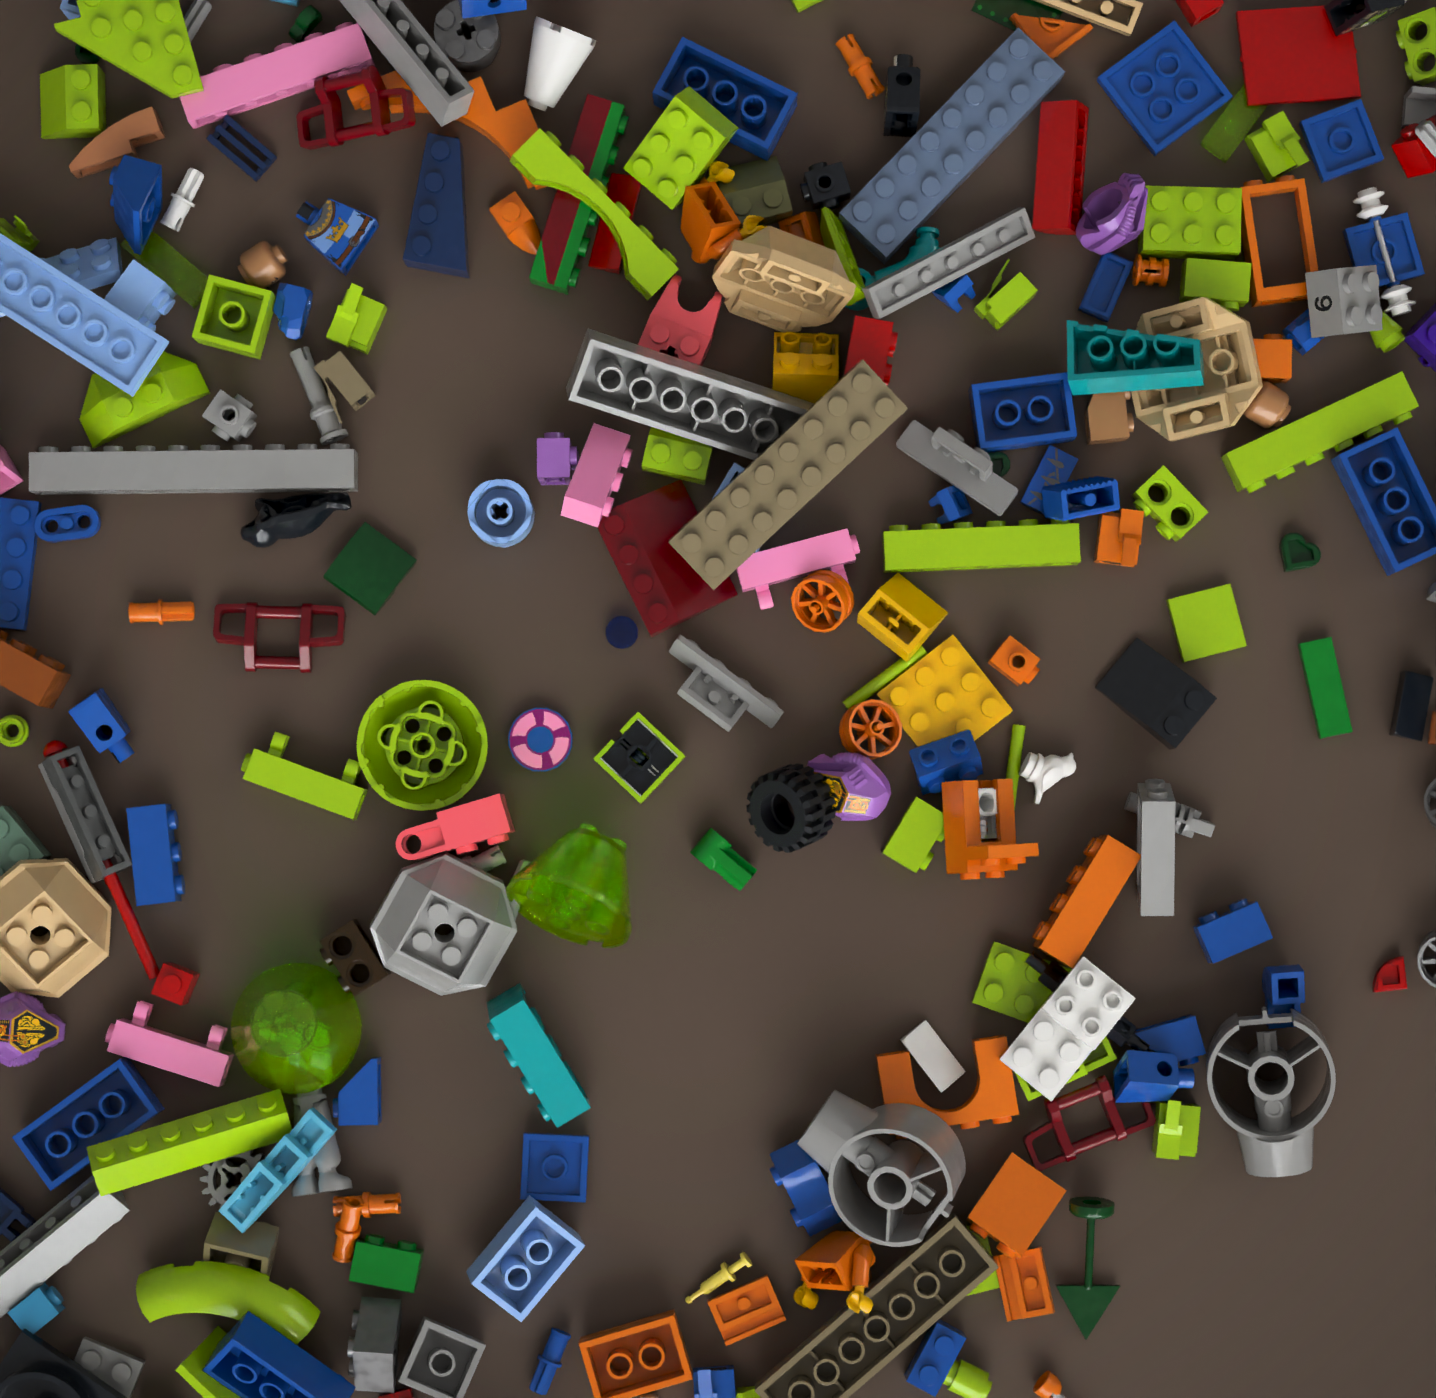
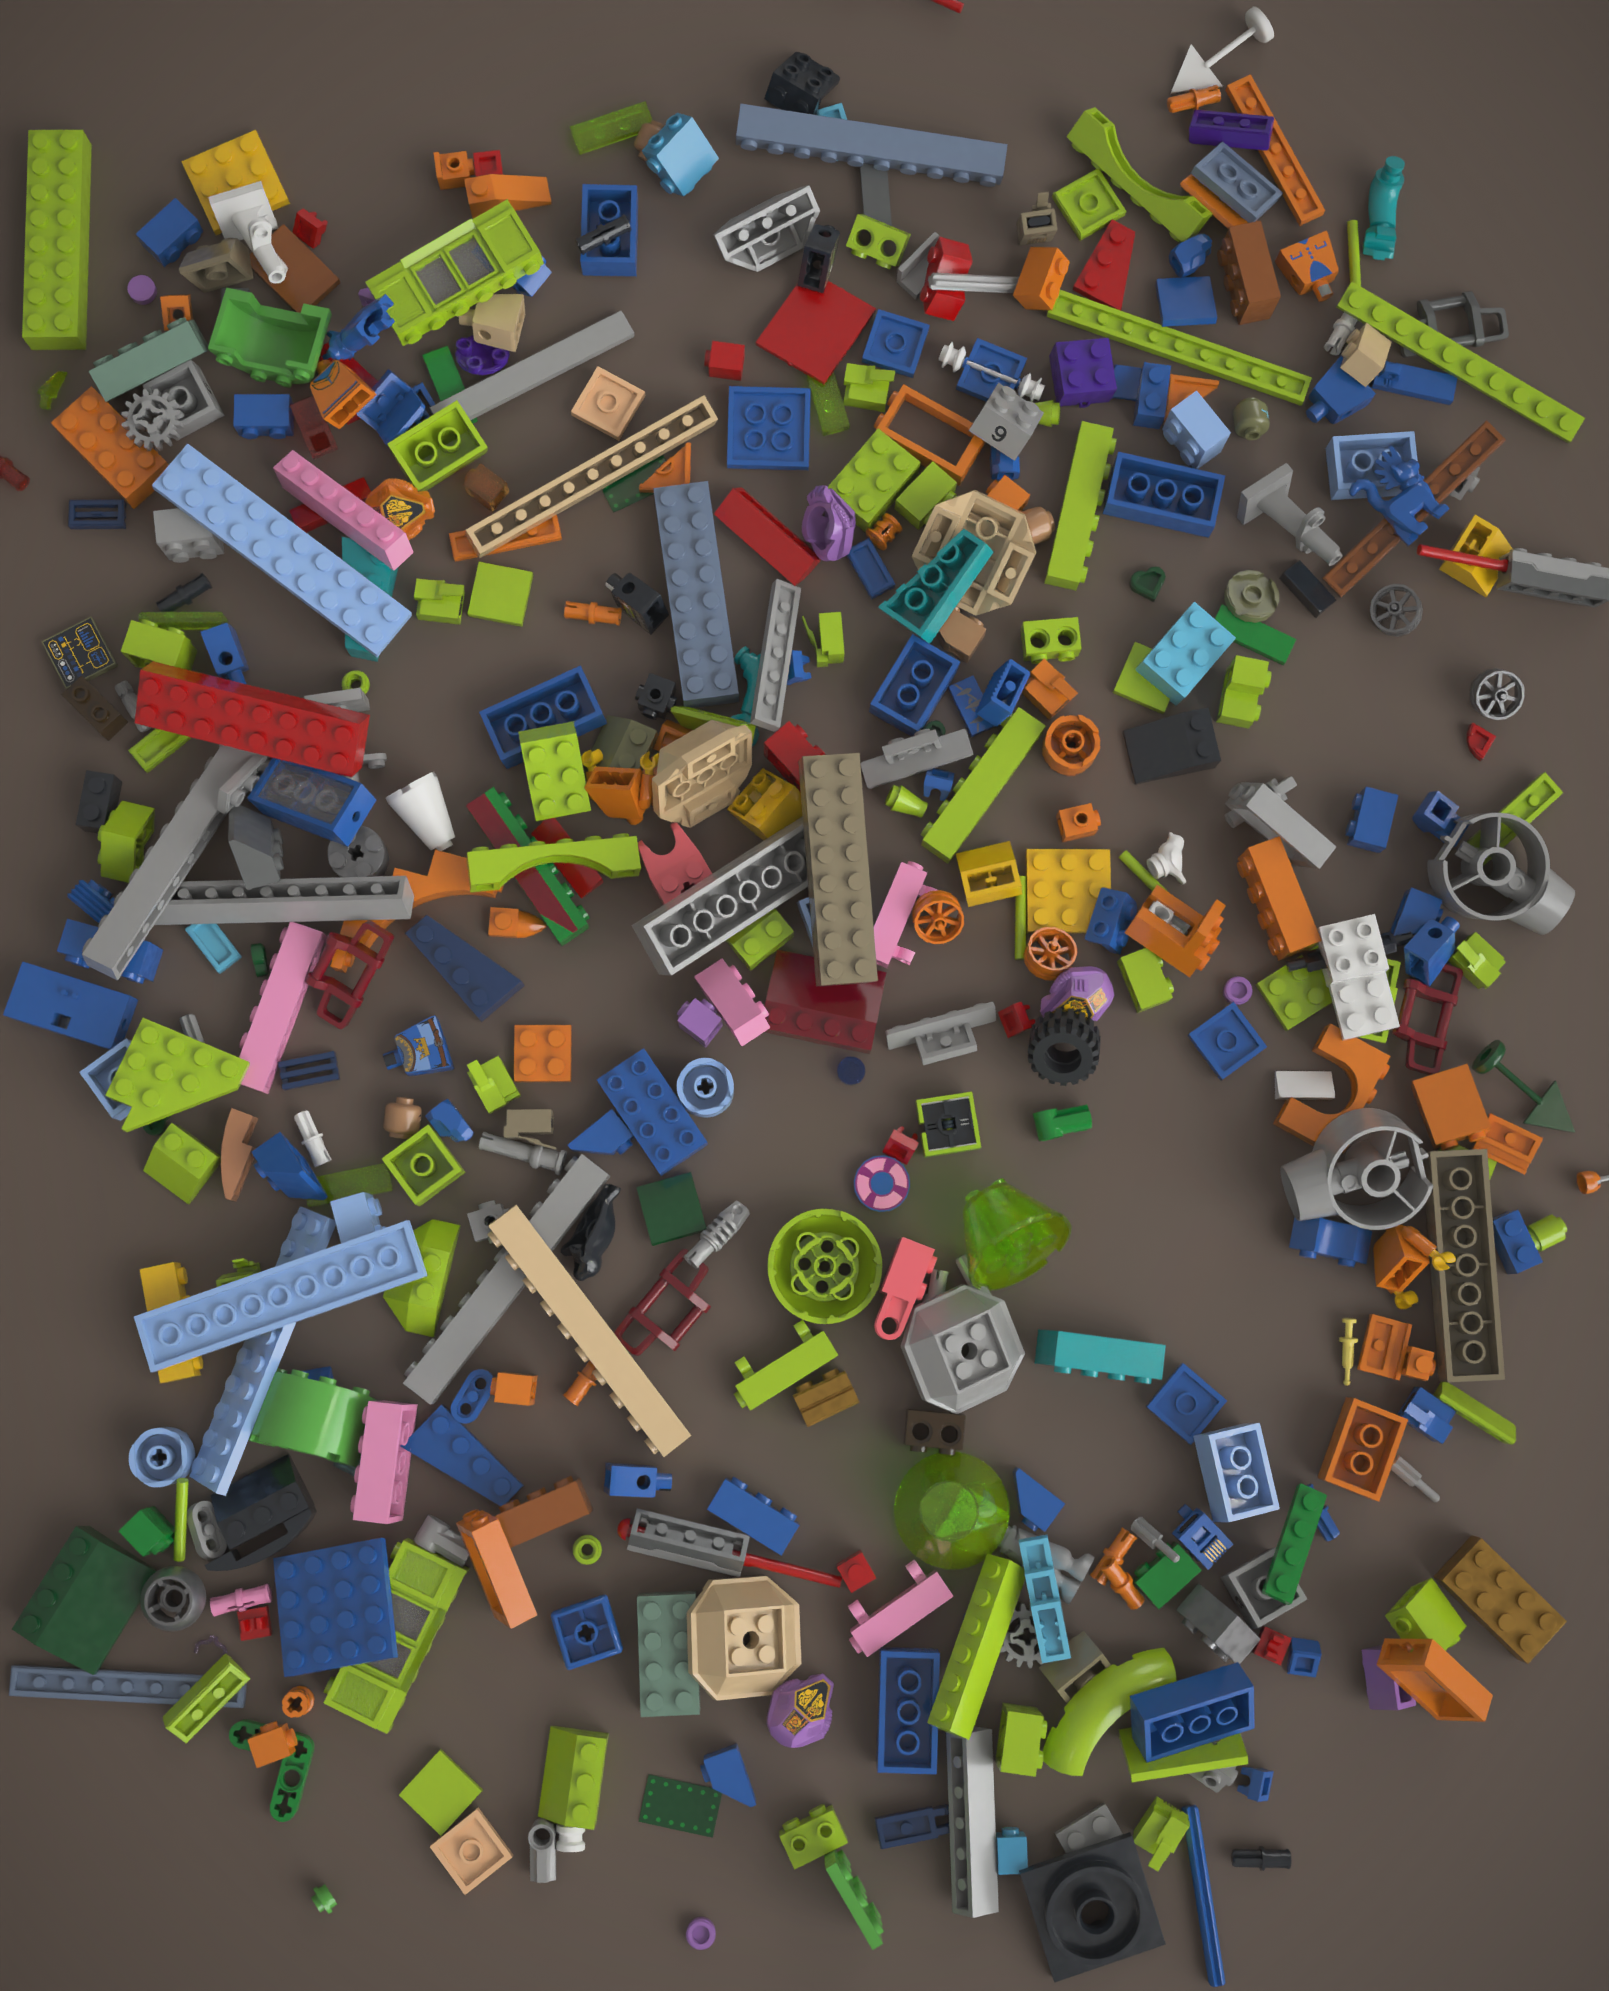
camera: 60 degrees left, 5 degrees down
(100, 554) = (514, 1388): none -> orange brick
(138, 1241) = (1020, 1739): none -> lime brick
(201, 578) = (589, 1330): none -> tan brick
(307, 837) = (826, 1397): none -> pearl gold brick
(379, 627) = (718, 1233): none -> light grey hinge
(387, 457) = (604, 1137): none -> blue slope
(409, 1227) = (1152, 1538): none -> light grey axle
(420, 343) = (542, 1053): none -> orange plate
(441, 482) = (652, 1112): none -> blue brick
(444, 1270) = (1201, 1536): none -> blue piece
(499, 1359) = (1294, 1544): none -> green plate
(586, 730) = (901, 1146): none -> red tile
(754, 1352) = (1418, 1364): none -> orange brick
(785, 744) = (1015, 1019): none -> red tile
(908, 487) = (904, 801): none -> lime cone
(917, 954) = (1227, 1041): none -> blue plate
(973, 928) = (1237, 990): none -> medium lavender tile
(1096, 587) = (1063, 731): none -> orange brick
(1254, 638) = (1185, 653): none -> medium azure brick
(1258, 718) = (1242, 685): none -> lime brick
(1350, 1065) = (1526, 805): none -> lime plate
(1360, 658) = (1251, 596): none -> olive tile

